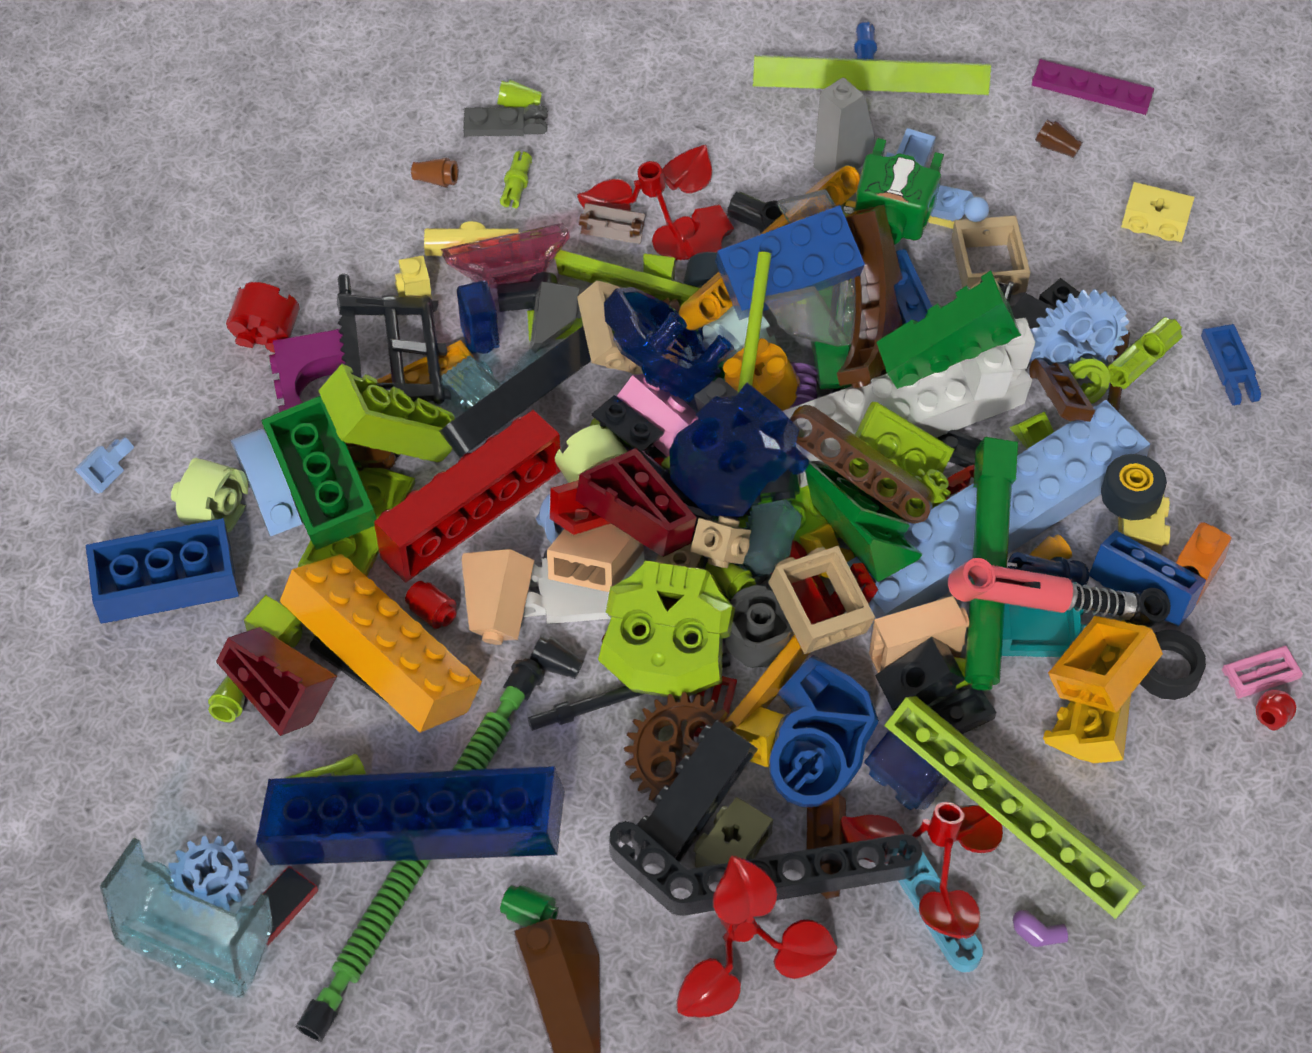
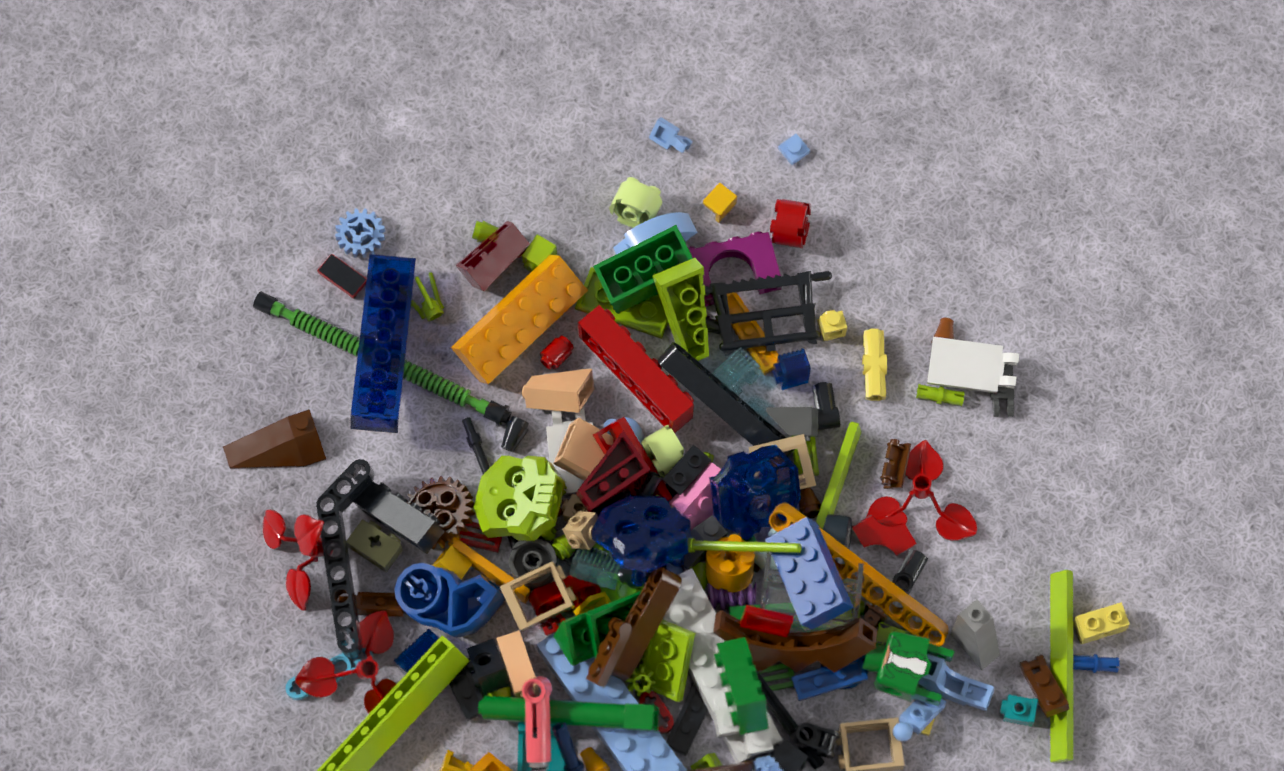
camera: 90 degrees right, 15 degrees up
(146, 325) = (794, 149): none -> light blue plate
(161, 571) = (578, 181): blue brick -> none
(181, 928) = (321, 220): clear light blue windscreen -> none
(216, 400) = (720, 201): none -> yellow panel
(482, 137) = (970, 365): none -> white tile
(508, 256) = (850, 386): clear pink wedge -> none
(517, 95) = (1025, 393): lime cone -> none
(527, 905) = (333, 422): green brick -> none
(659, 266) = (848, 502): lime slope -> none
(816, 31) = (1101, 623): none -> light yellow brick
(849, 325) = (766, 621): none -> red tile
(901, 87) = (1044, 686): none -> reddish brown plate
(905, 502) = (609, 652): none -> reddish brown plate
(930, 112) = (1025, 717): none -> teal brick
(1036, 932) = (311, 730): medium lavender arm -> none

